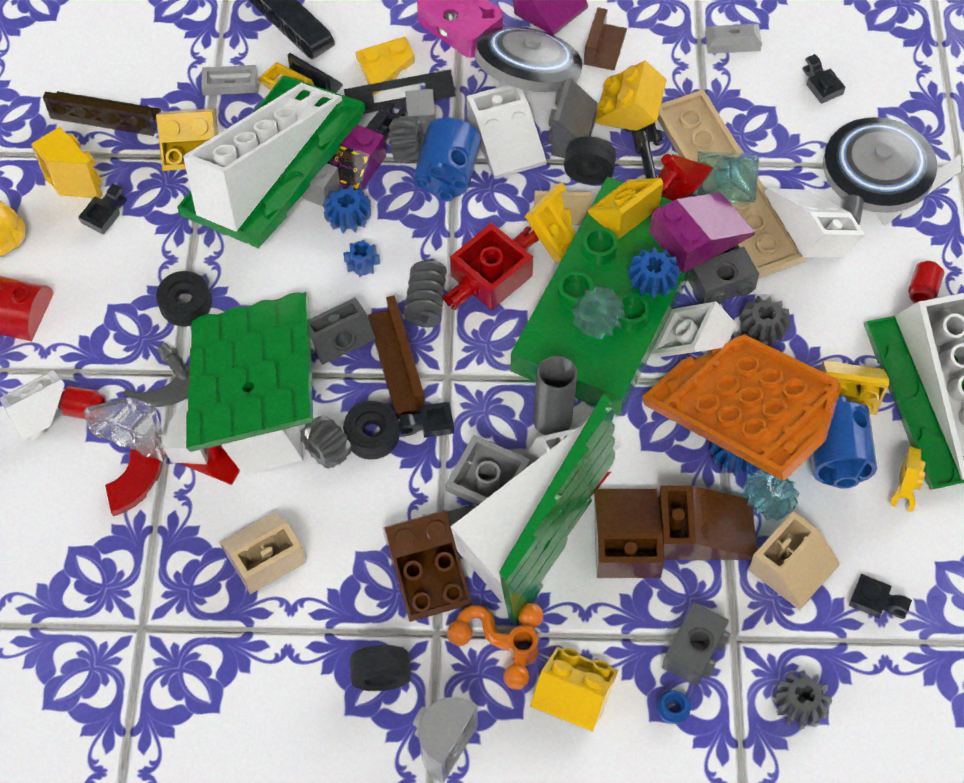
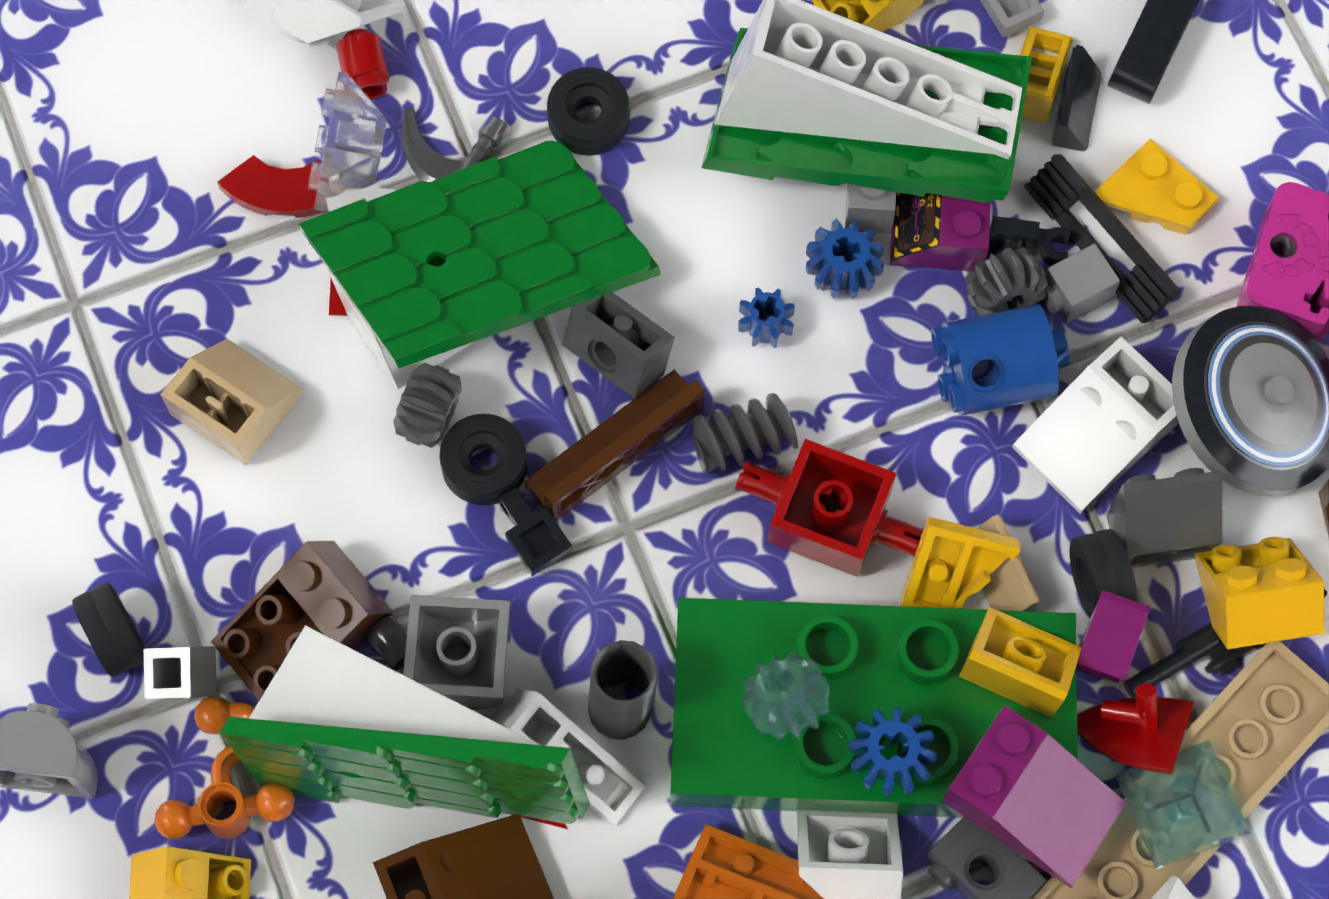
camera: 65 degrees right, 10 degrees up
(427, 637) = (179, 672): none -> light grey brick
(627, 161) = (1112, 636): none -> magenta slope

